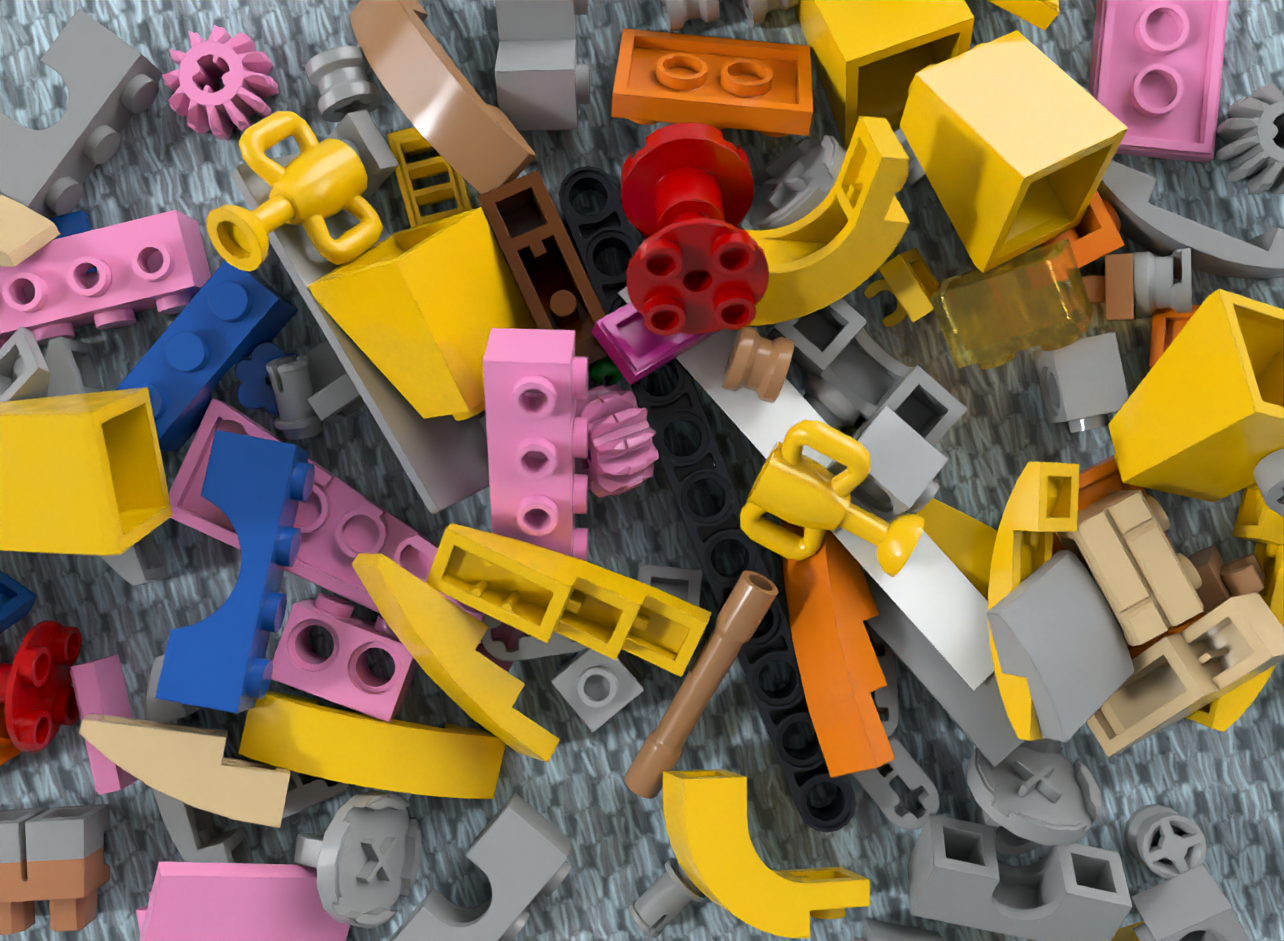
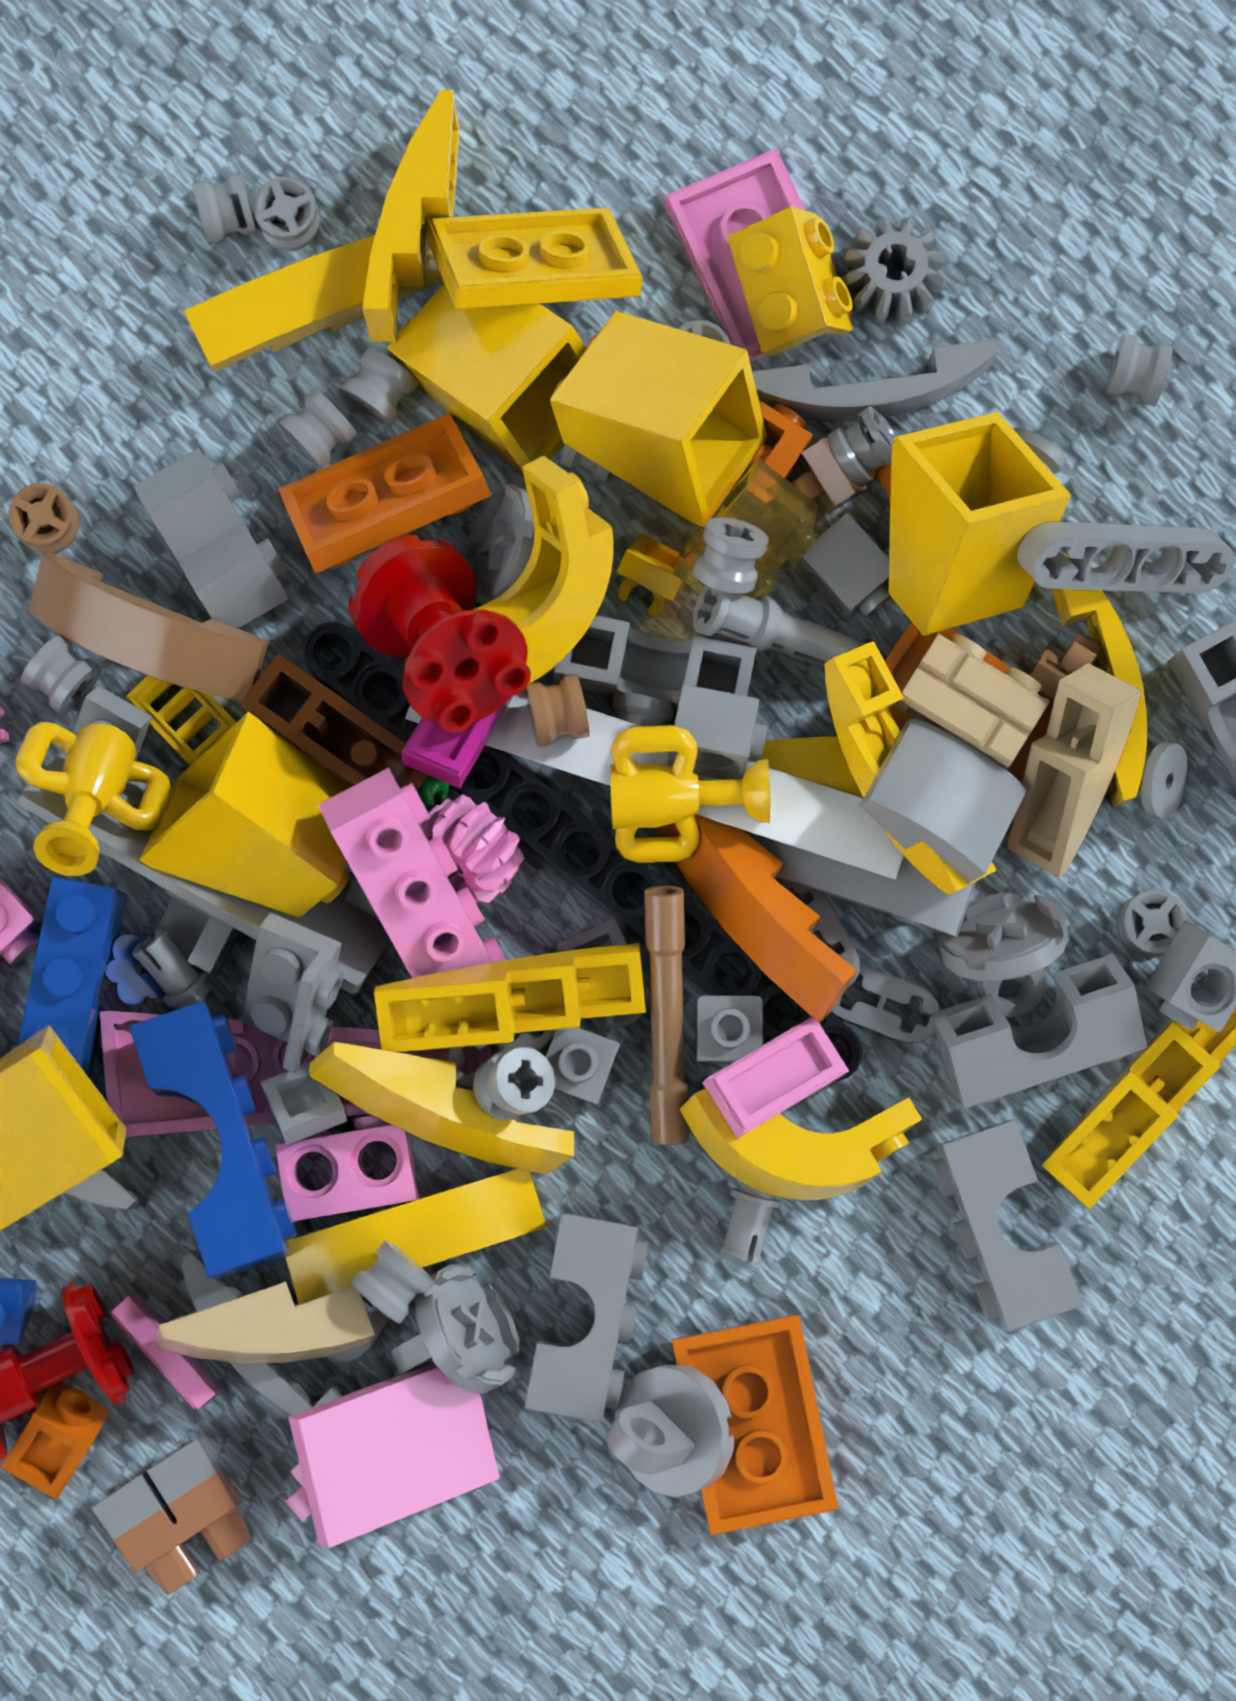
camera: 35 degrees left, 5 degrees down
(320, 791) = (392, 1281): none -> light grey wheel
(332, 583) = (302, 1104): none -> light grey plate
(381, 477) = (293, 987): none -> light grey bracket
(513, 669) = (501, 1094): none -> light grey wheel
(745, 731) = (728, 1027): none -> light grey bracket
(763, 804) = (775, 1077): none -> bright pink tile
(986, 393) = (764, 626): none -> light grey pin
(997, 312) = (730, 555): none -> light grey wheel
(1182, 93) = (790, 279): none -> yellow bracket
(1250, 724) = (1164, 780): none -> light grey wheel

